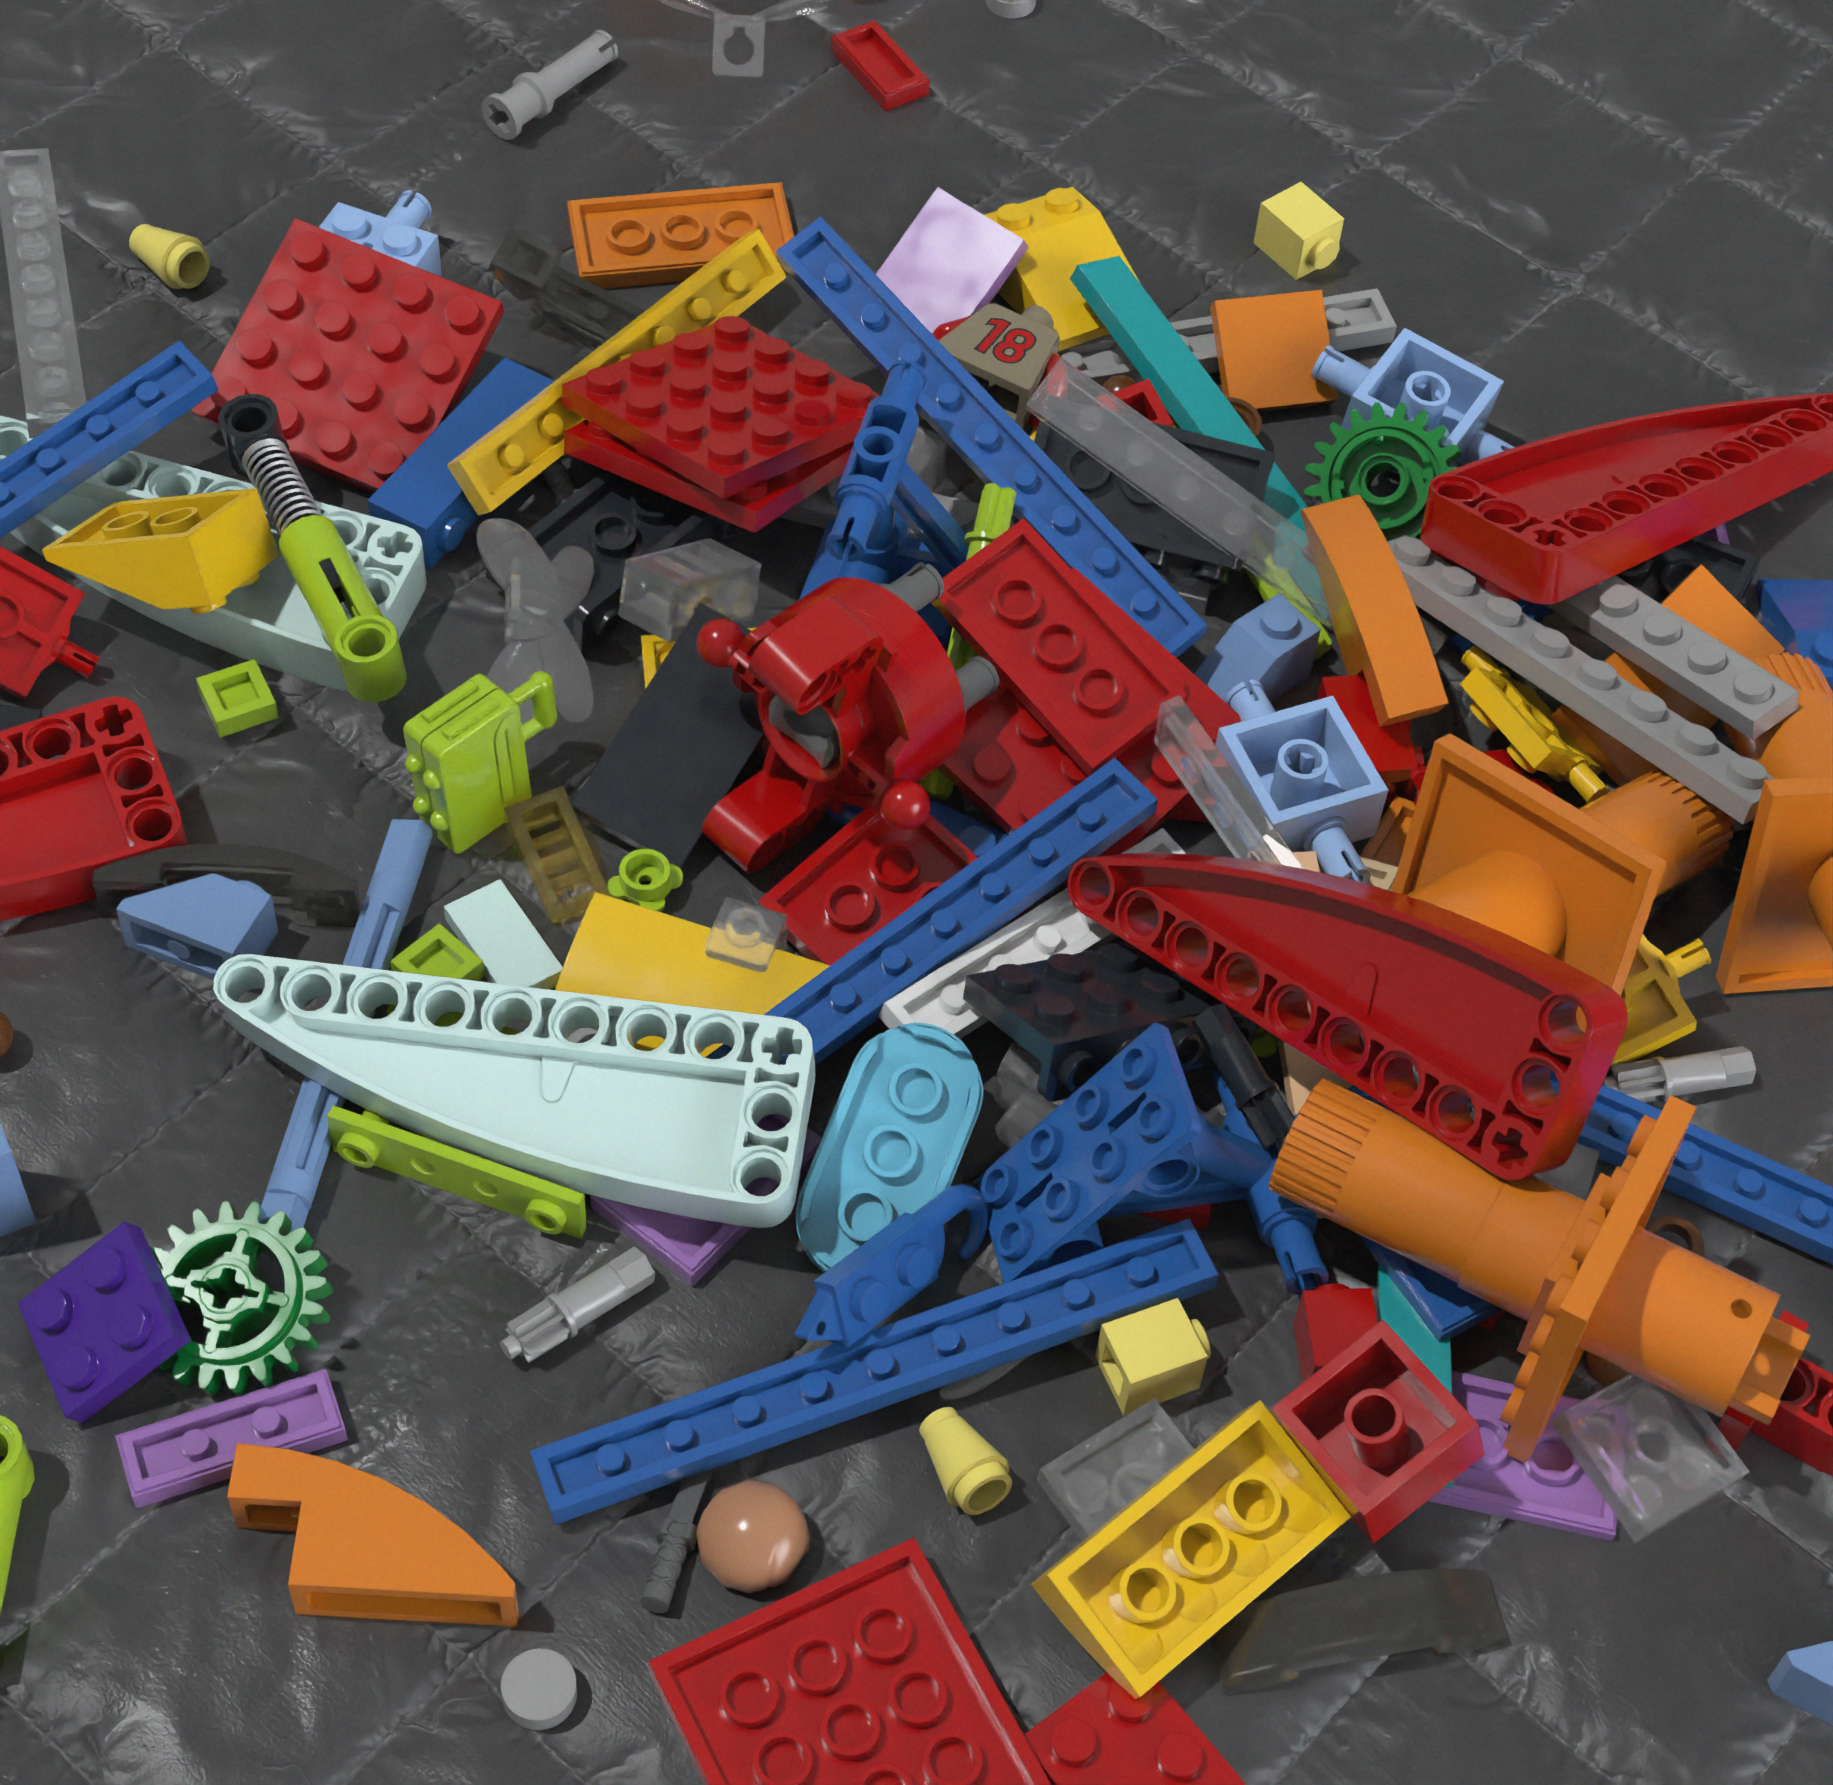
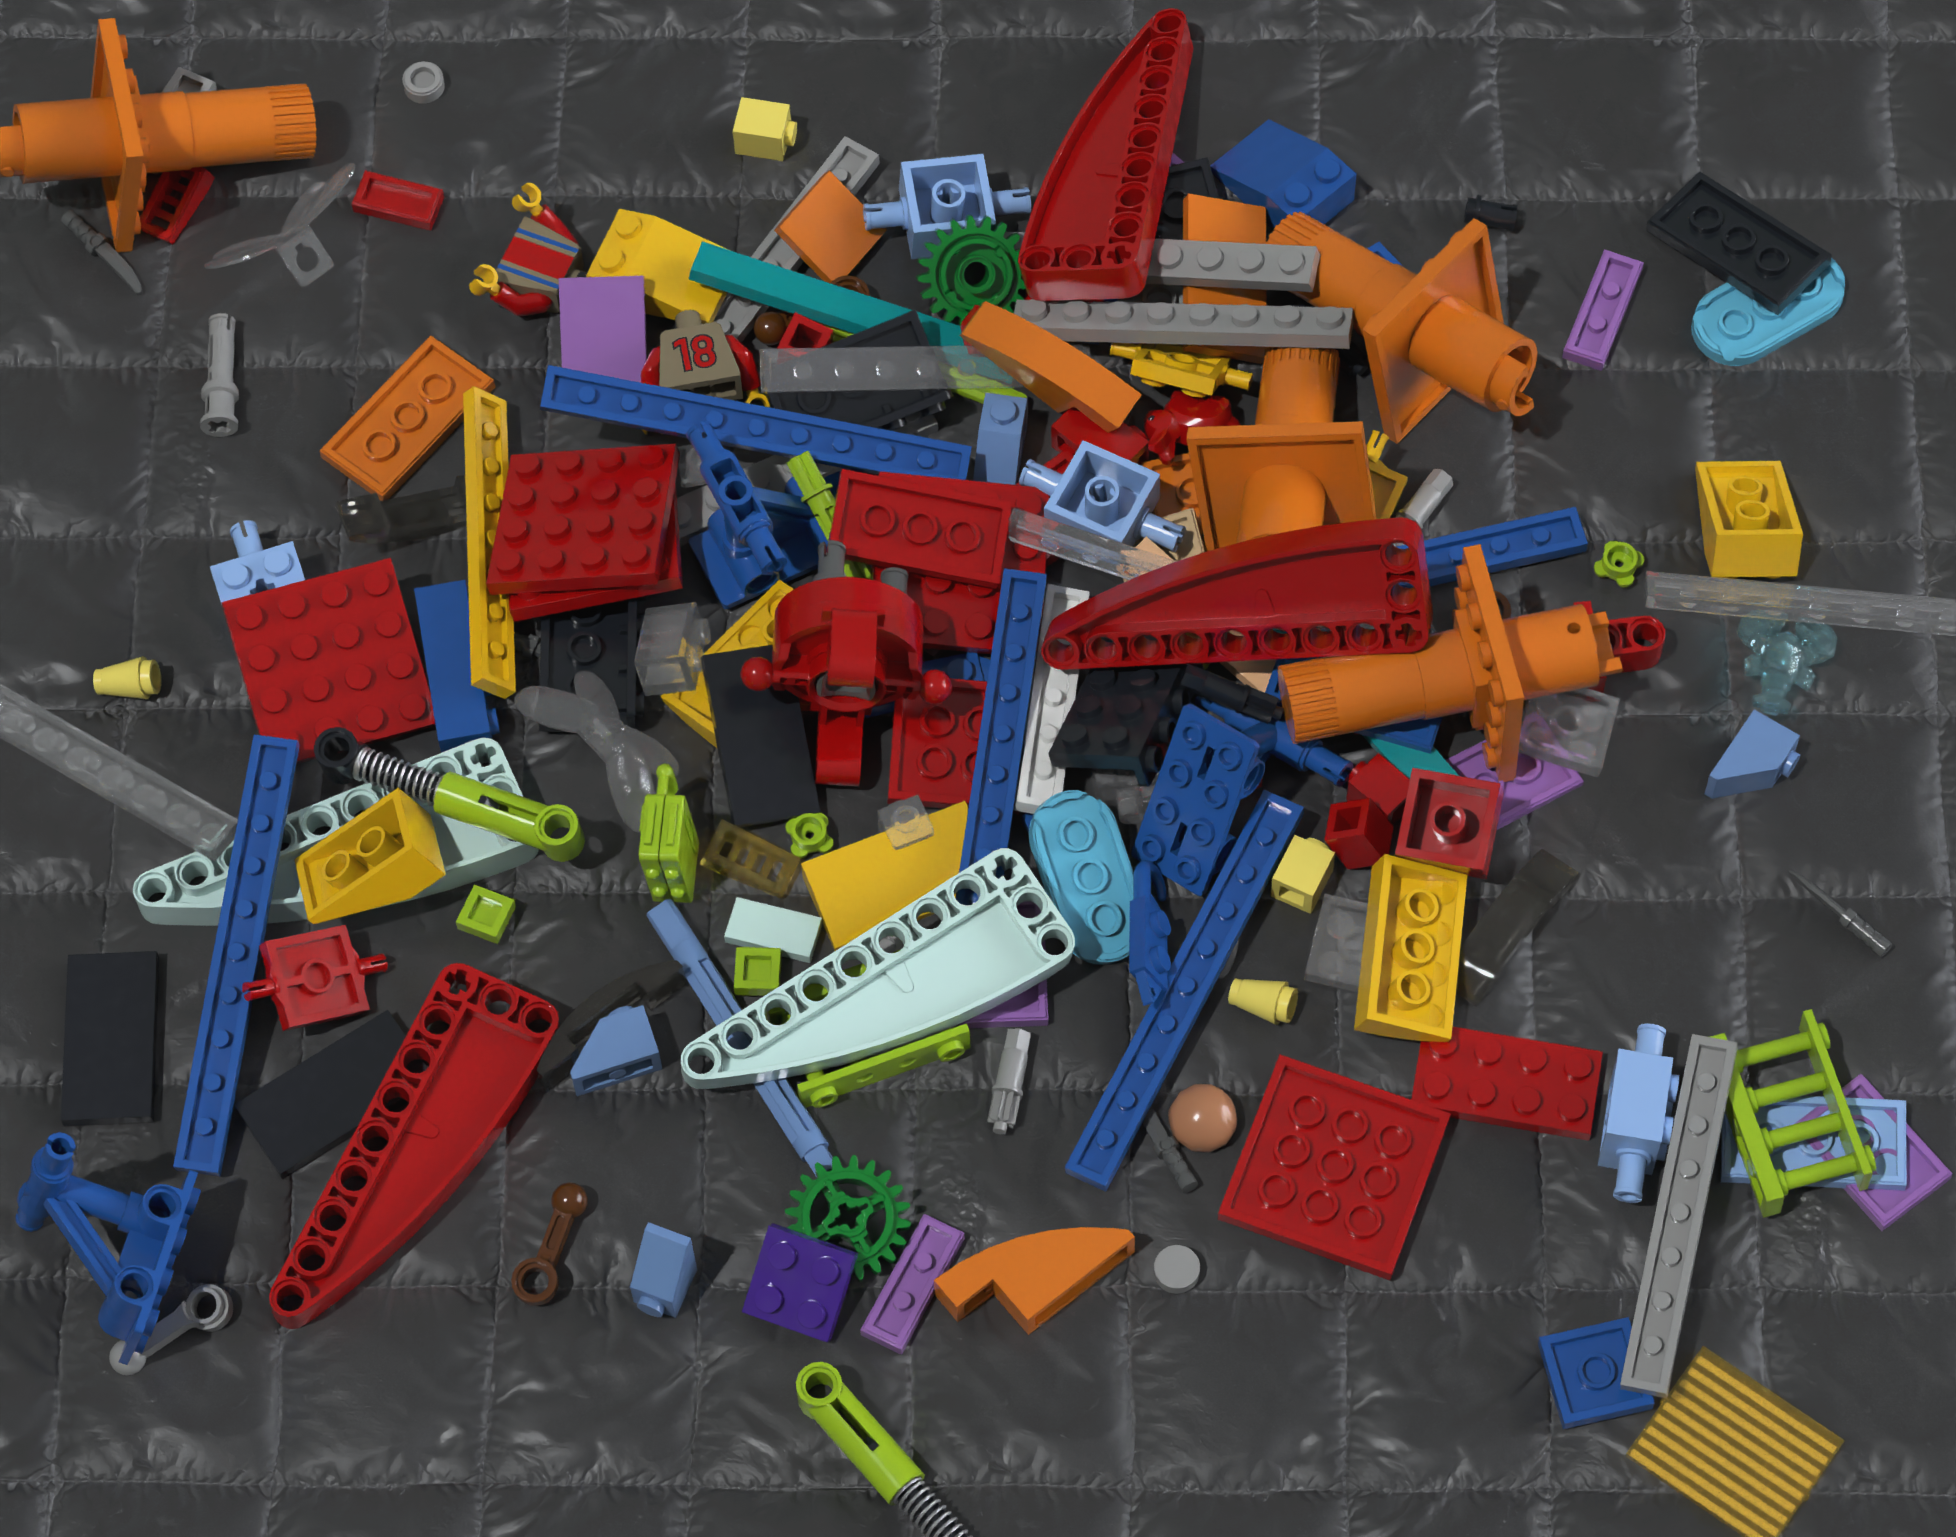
camera: 35 degrees left, 10 degrees up
(963, 169) = (533, 262): none -> torso
(1258, 1355) = (1358, 832): none -> red brick

